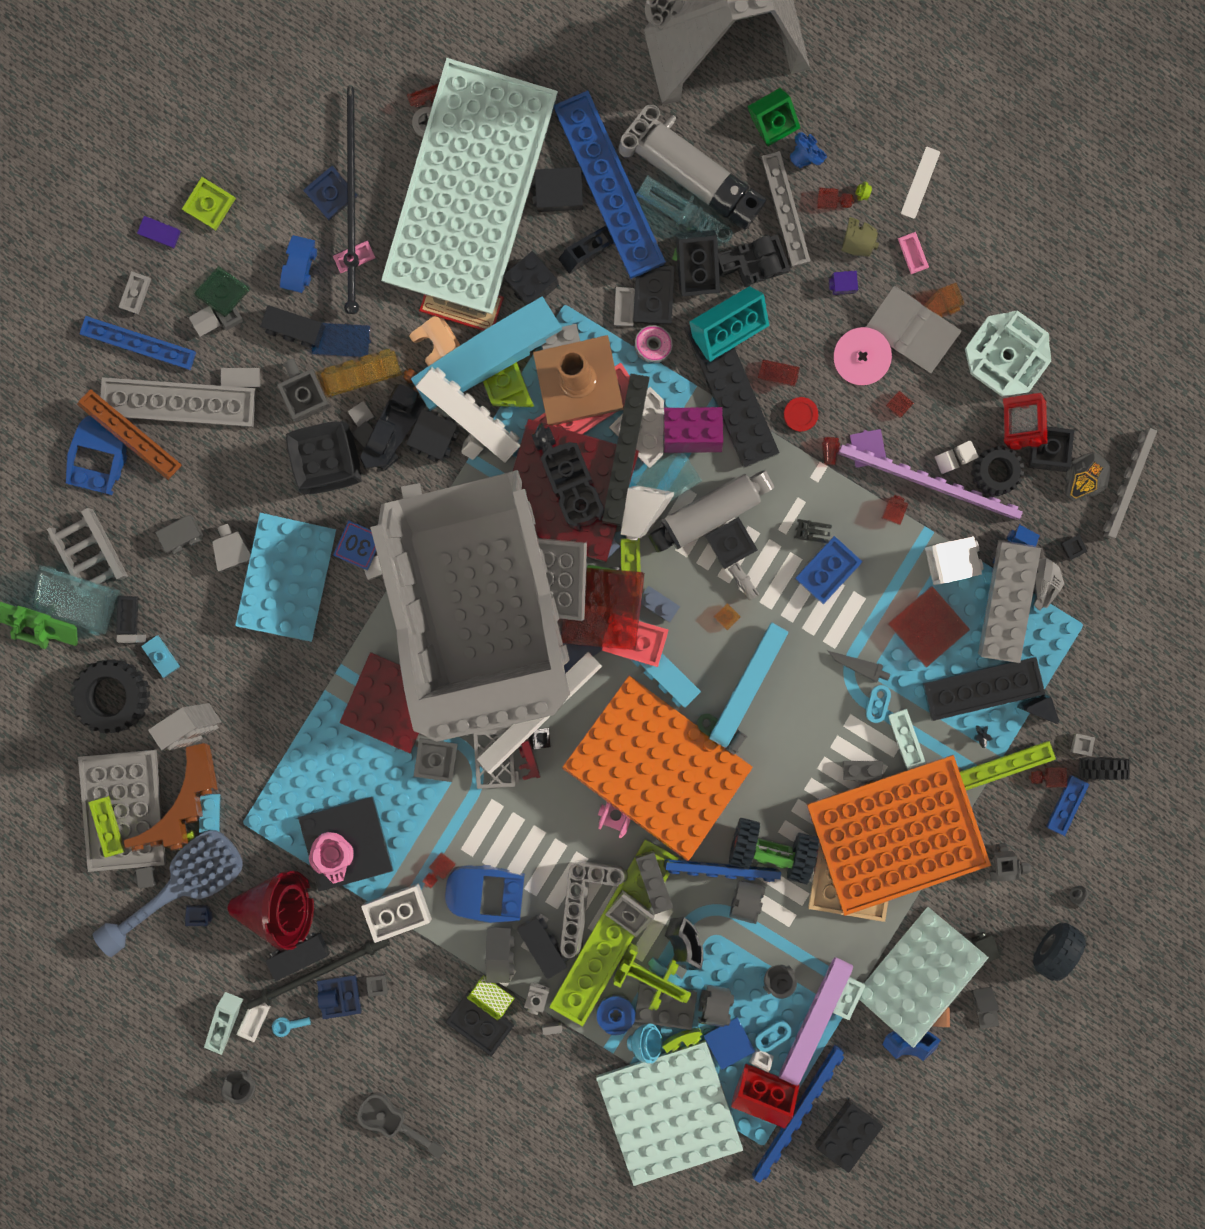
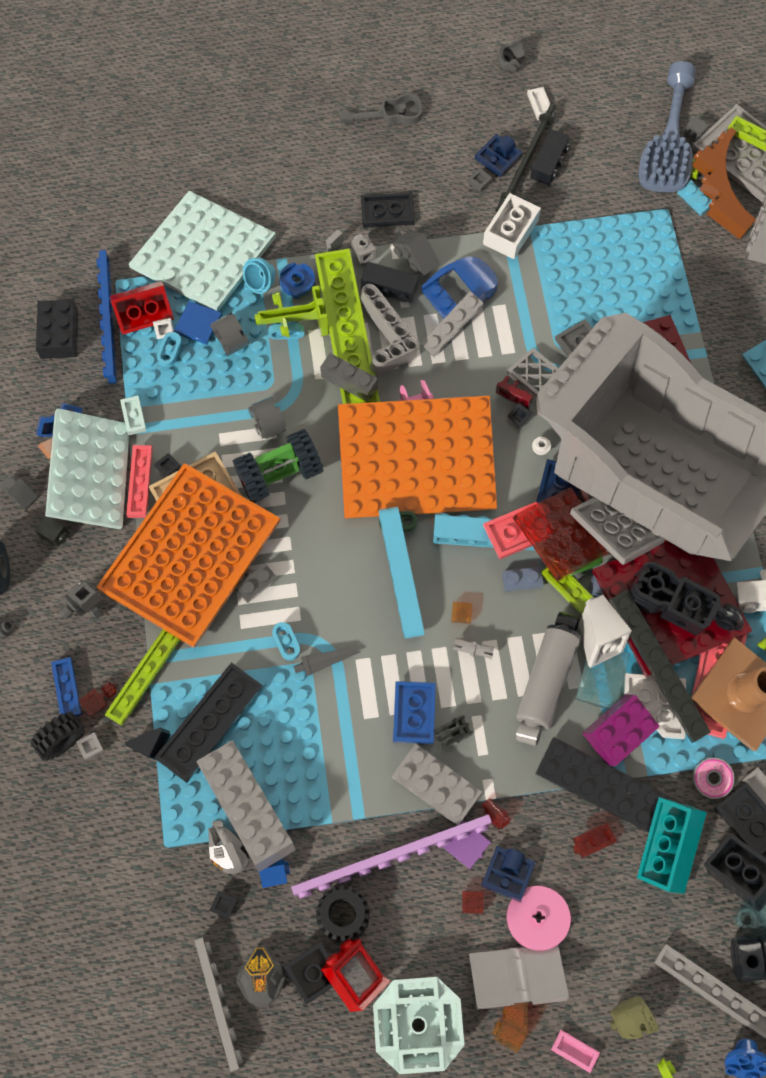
camera: 145 degrees right, 20 degrees down
(198, 915) = (639, 133): dark blue plate -> none
(223, 1022) = (559, 86): light aqua slope -> none
(276, 909) = (590, 167): dark red cone -> none
(282, 1025) = (517, 112): medium azure plate -> none
(331, 856) = (591, 221): bright pink helmet -> none
(361, 828) = (587, 246): black plate -> none
(441, 866) = (508, 281): clear red plate -> none
(490, 998) = (394, 225): lime panel -> none
(519, 732) = (537, 433): white tile -> none
(526, 863) = (452, 324): none -> light grey plate
(630, 913) = (348, 347): light grey slope -> none
(670, 1011) = (262, 303): dark grey plate -> none
(685, 943) = (287, 358): black brick -> none
(687, 1036) = (235, 300): lime slope -> none
(713, 869) = (311, 421): blue plate -> none
(731, 543) = (509, 669): black plate -> none
(736, 742) = (373, 525): dark grey pin -> none
(755, 261) = (697, 923): black plate -> none
(780, 981) = (195, 385): dark grey cap -> none
(801, 414) = (545, 823): red piece -> none
(815, 1021) = (145, 382): lavender beam -> none
(829, 197) = (688, 1034): clear red plate -> none
(843, 282) = (610, 968): dark purple brick -> none
(855, 928) = (167, 465): none -> black plate
(856, 505) = (436, 784): none -> light grey plate
(858, 401) = (508, 873): none -> dark blue plate
(887, 933) = (139, 481): none -> coral plate
(895, 509) = (401, 807): clear red bracket -> none
(906, 739) = (240, 632): light aqua plate -> none
(928, 626) = (295, 734): clear red plate -> none
(946, 461) = (391, 888): white slope -> none
(954, 560) = (318, 803): white slope -> none
(966, 452) = (382, 907): white slope -> none
(982, 736) = (180, 683): black plant -> none

